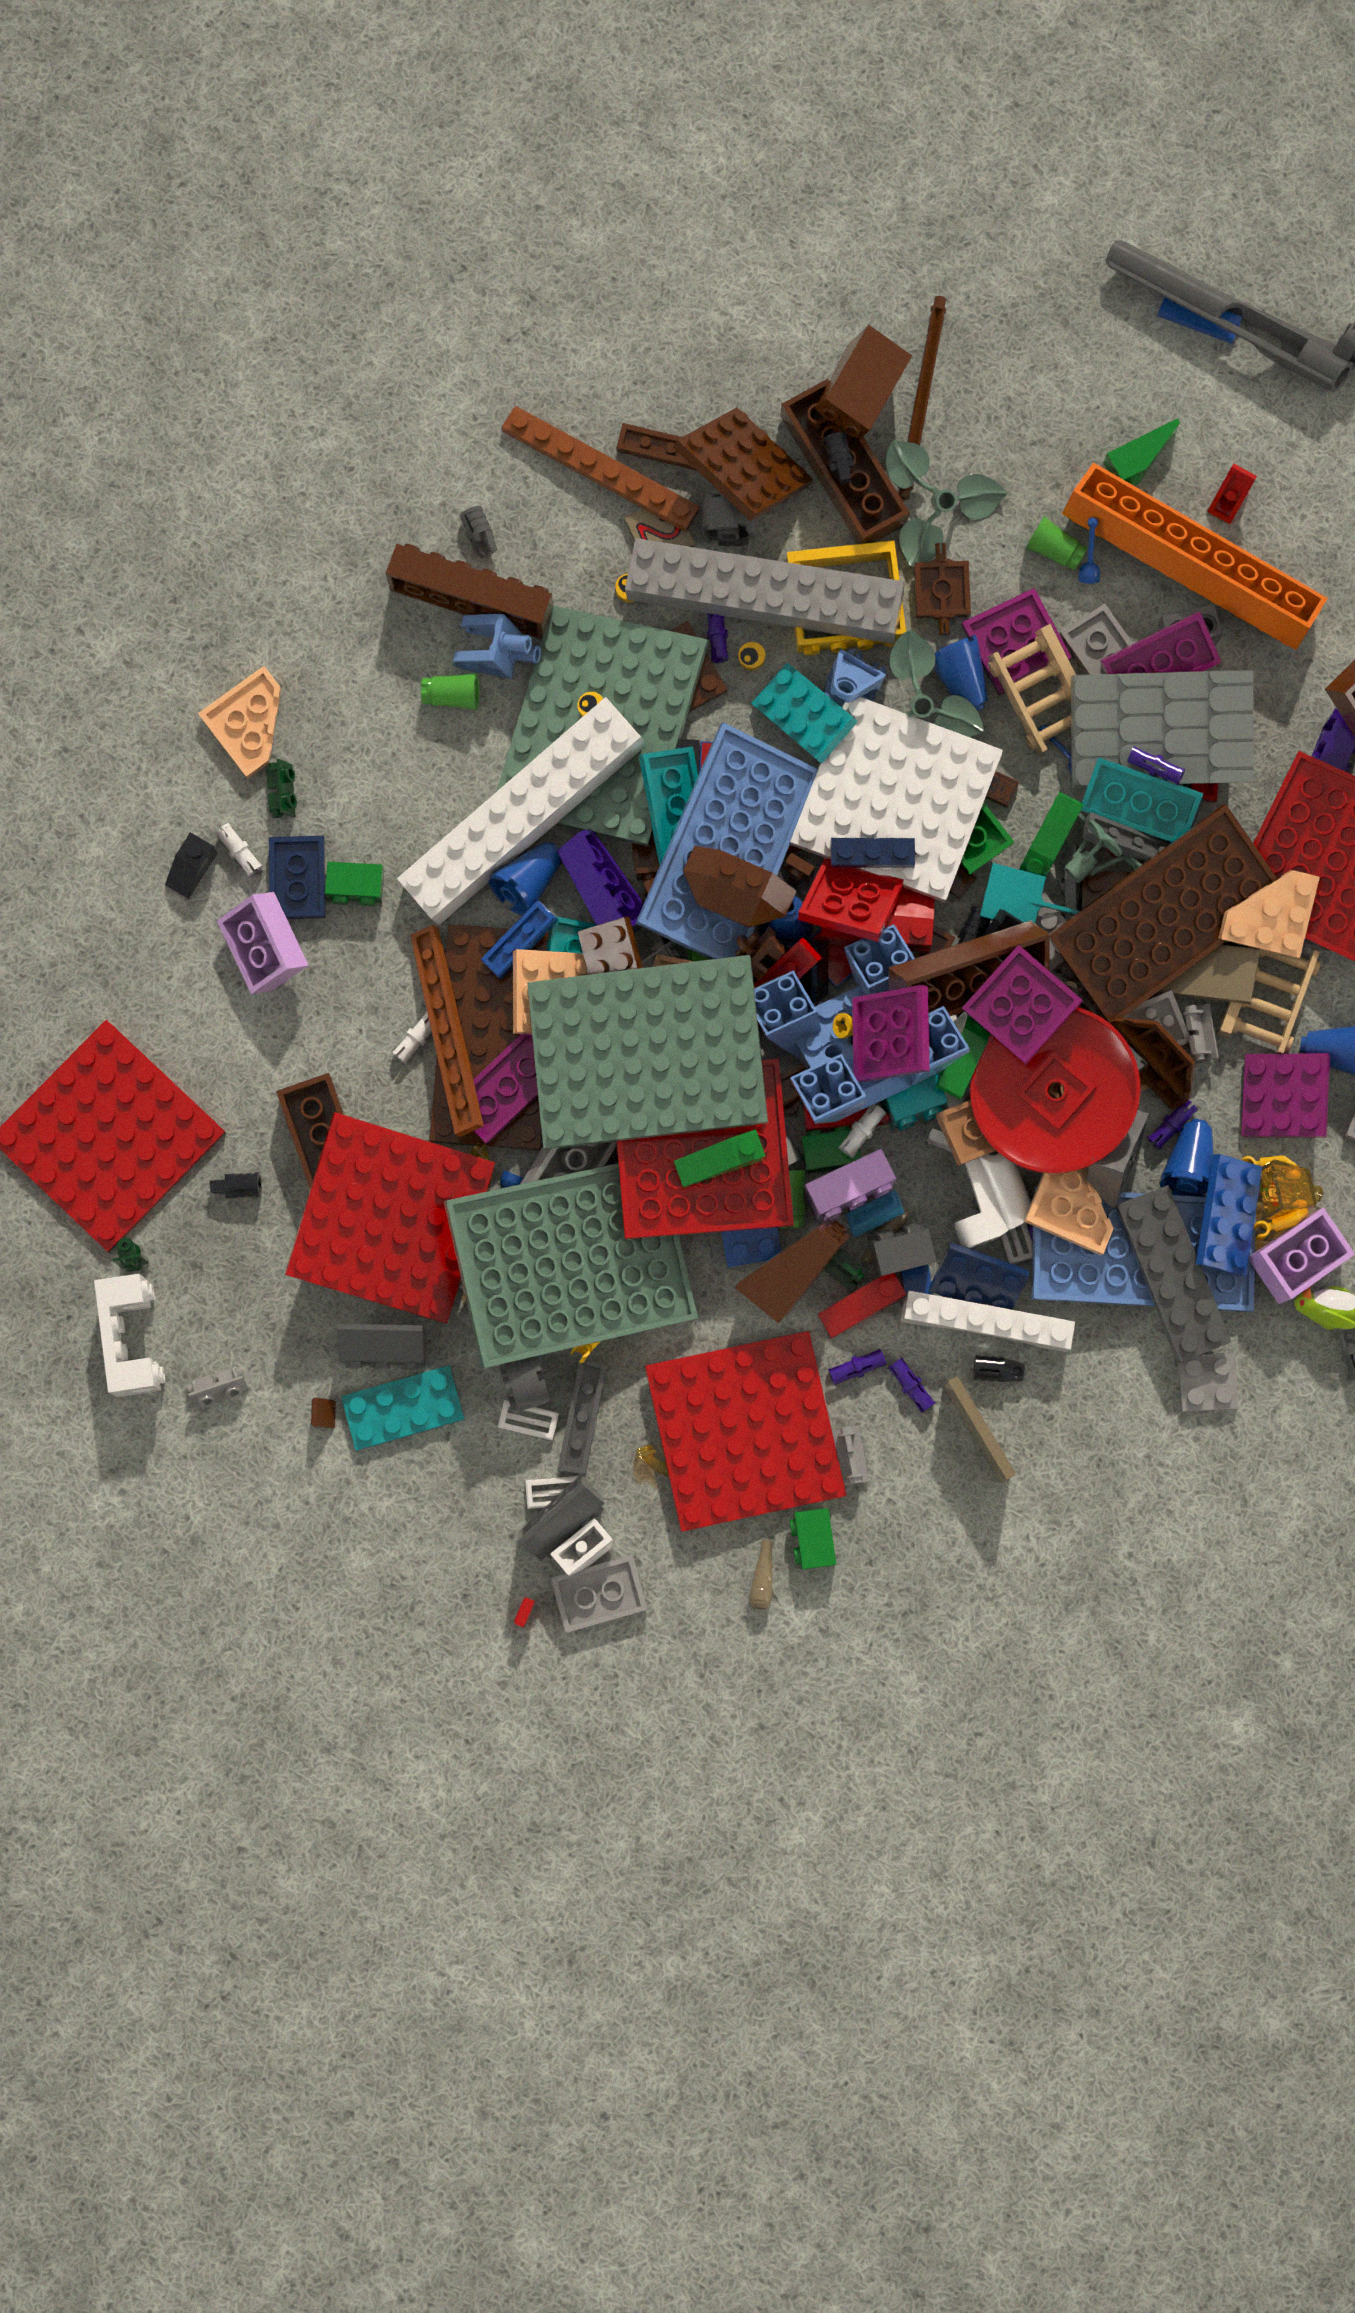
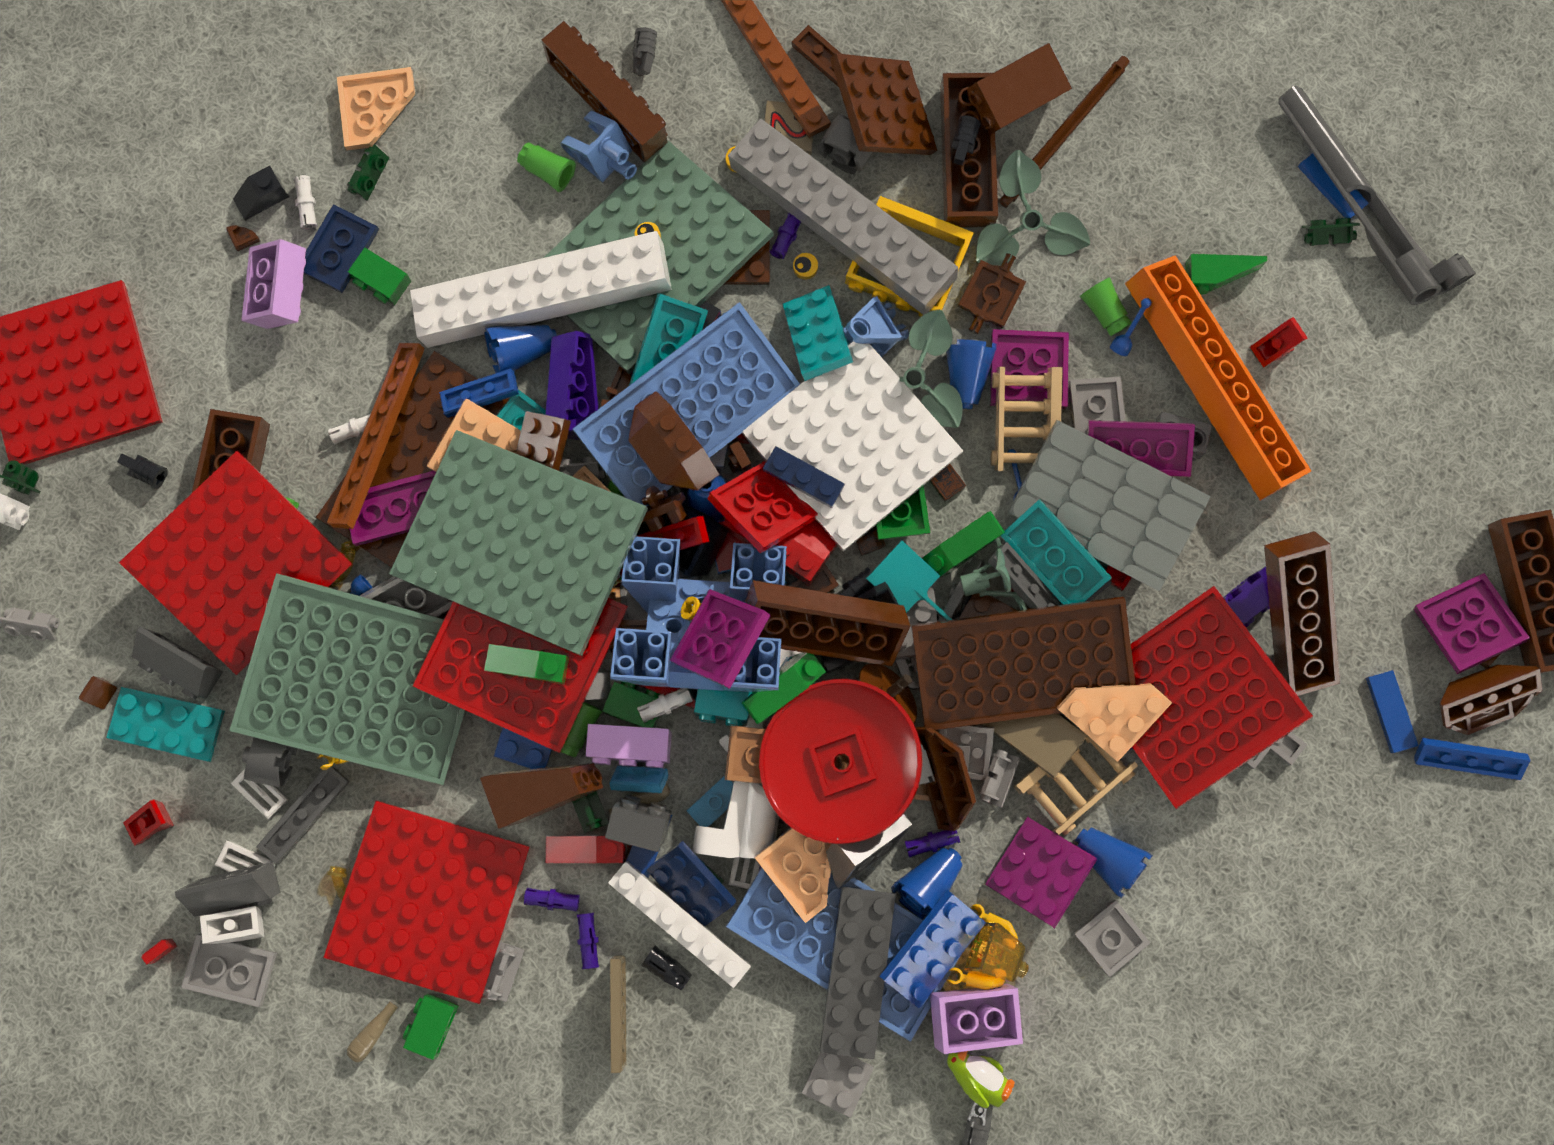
camera: 30 degrees right, 0 degrees up
(196, 916) = (242, 237): none -> reddish brown tile
(443, 1503) = (147, 821): none -> red slope
(954, 1198) = (712, 803): none -> dark azure plate
(1022, 1004) = (851, 674): magenta plate -> none
(1138, 757) = (1094, 546): dark purple pin -> none
(1231, 356) = (1319, 231): none -> dark green hinge

